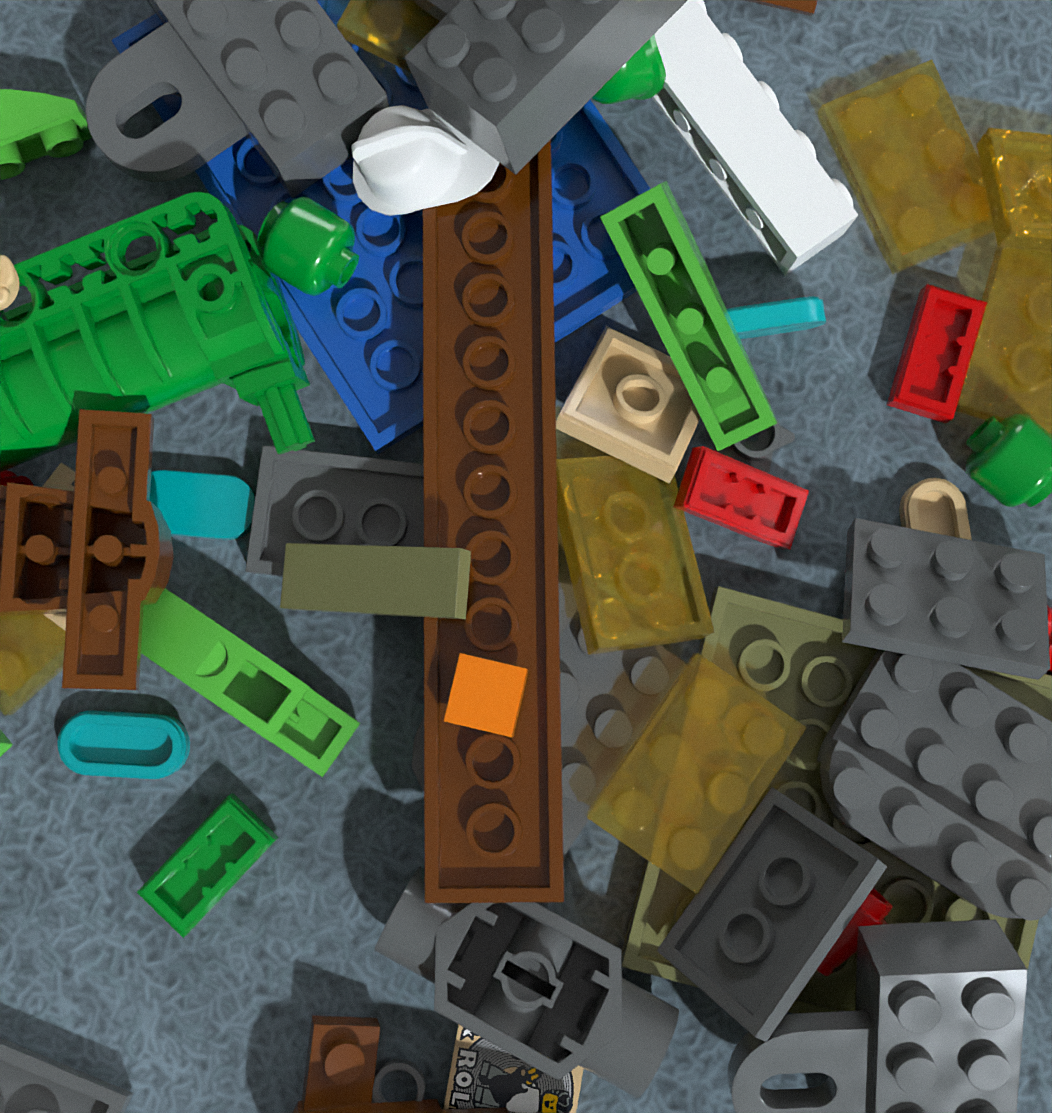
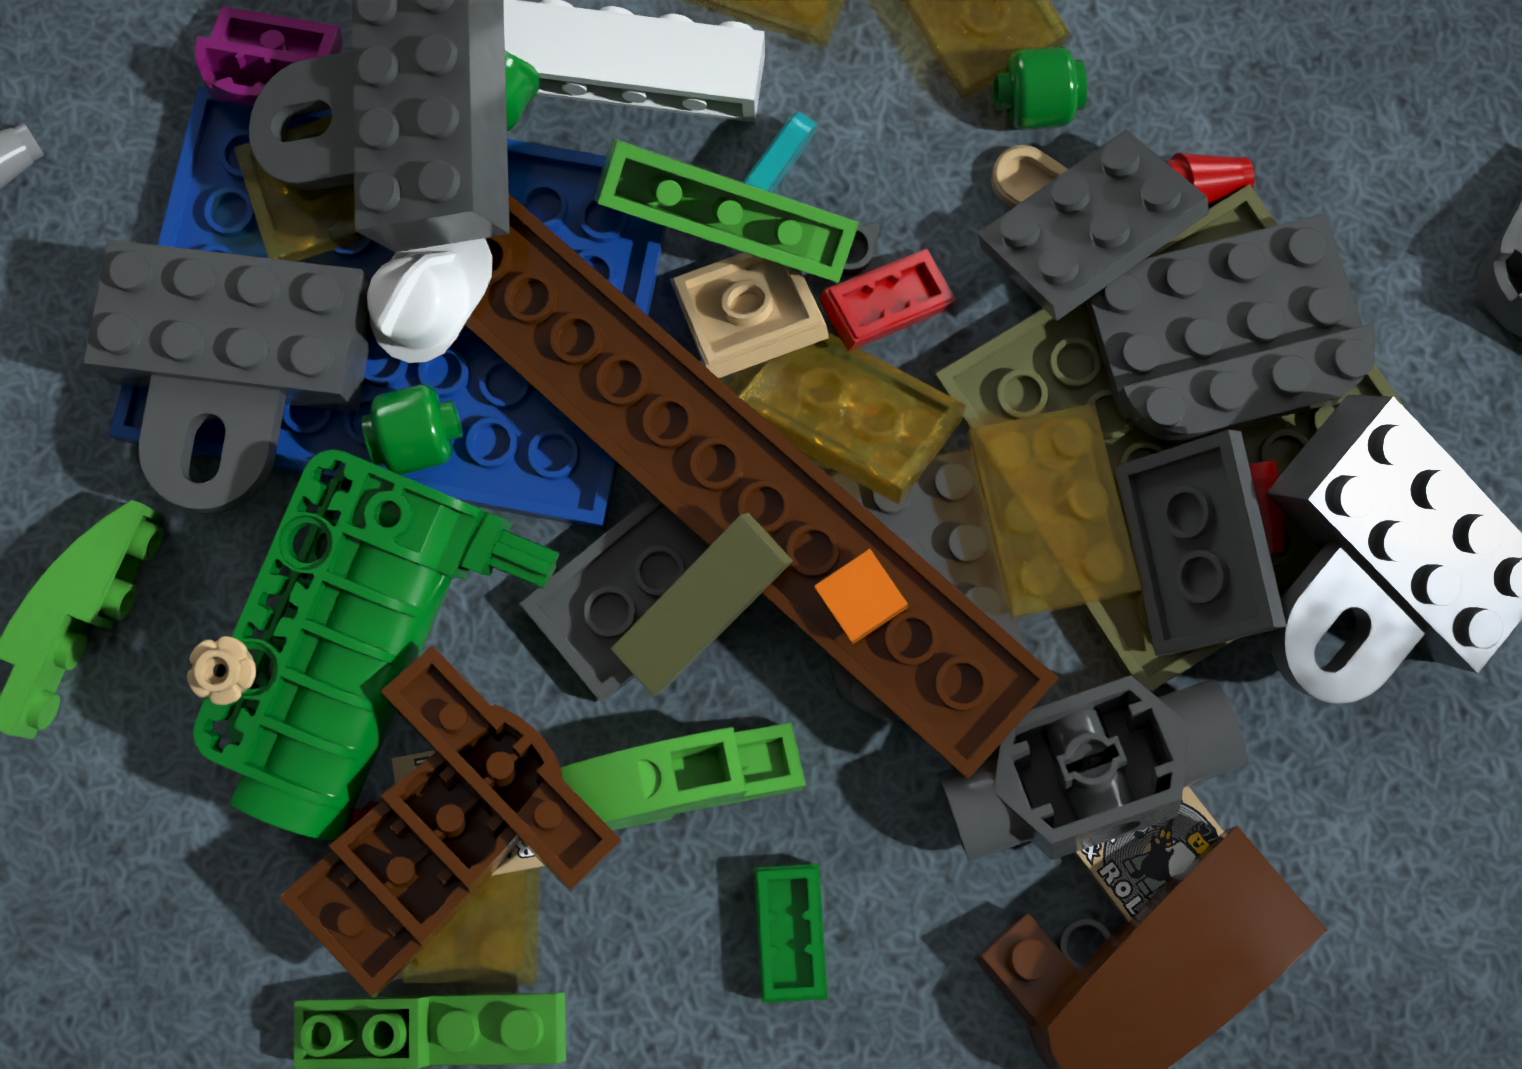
camera: 35 degrees left, 5 degrees down
(123, 744) = (640, 916): teal tile -> none
(203, 504) = (527, 682): teal tile -> none
(936, 353) = (913, 70): red plate -> none

